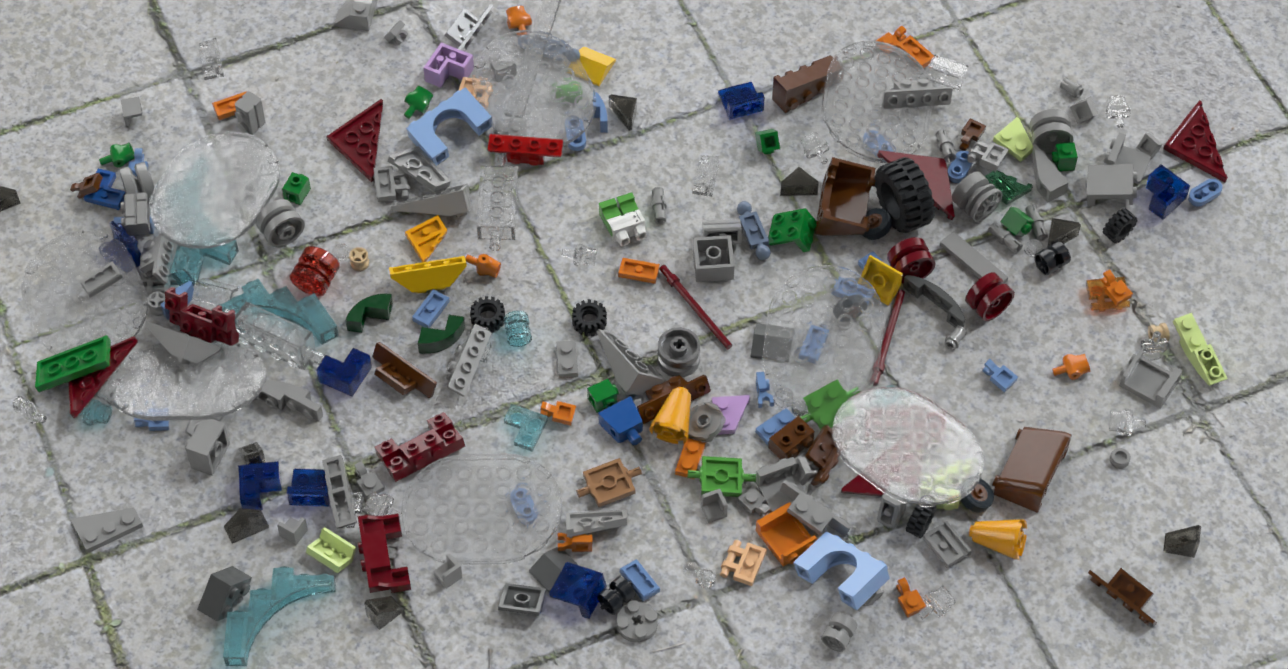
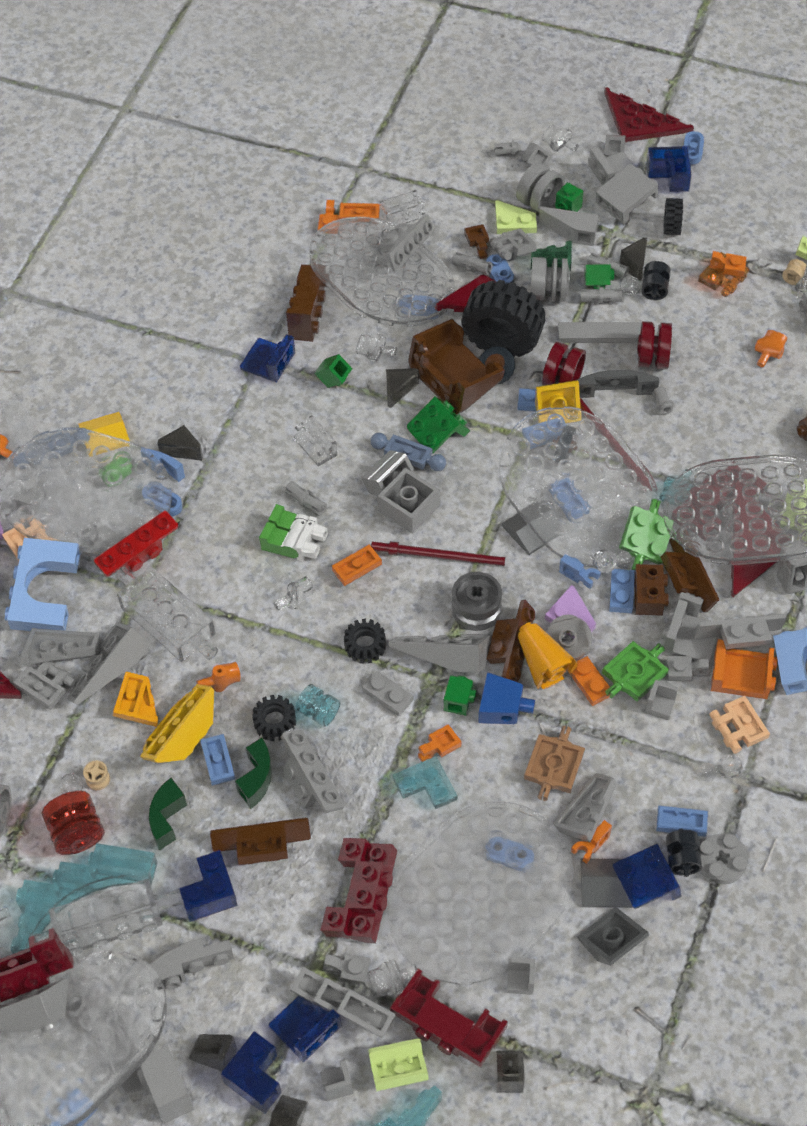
camera: 45 degrees left, 0 degrees up
(1001, 377) = (732, 398): medium blue plate -> none

